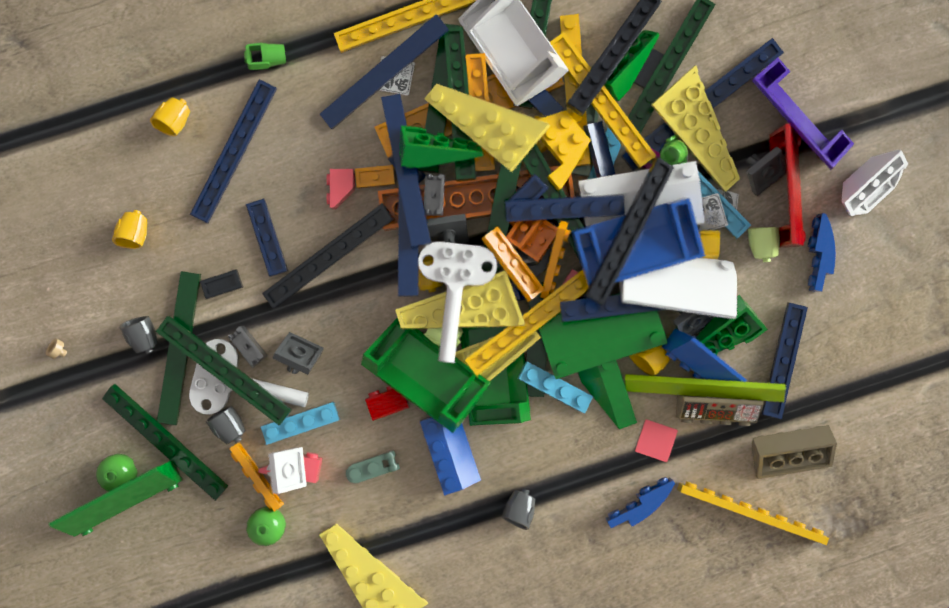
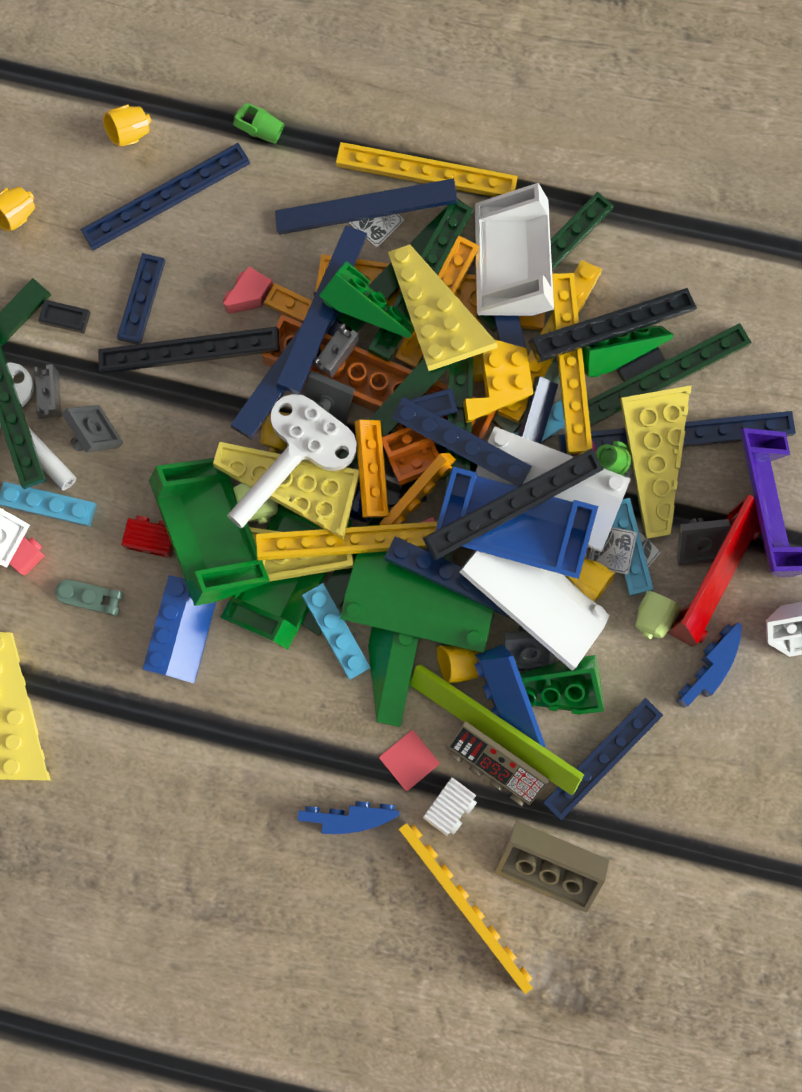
camera: 30 degrees right, 10 degrees down
(519, 509) = (213, 738): dark grey helmet -> none
(703, 455) = (450, 806): none -> white brick

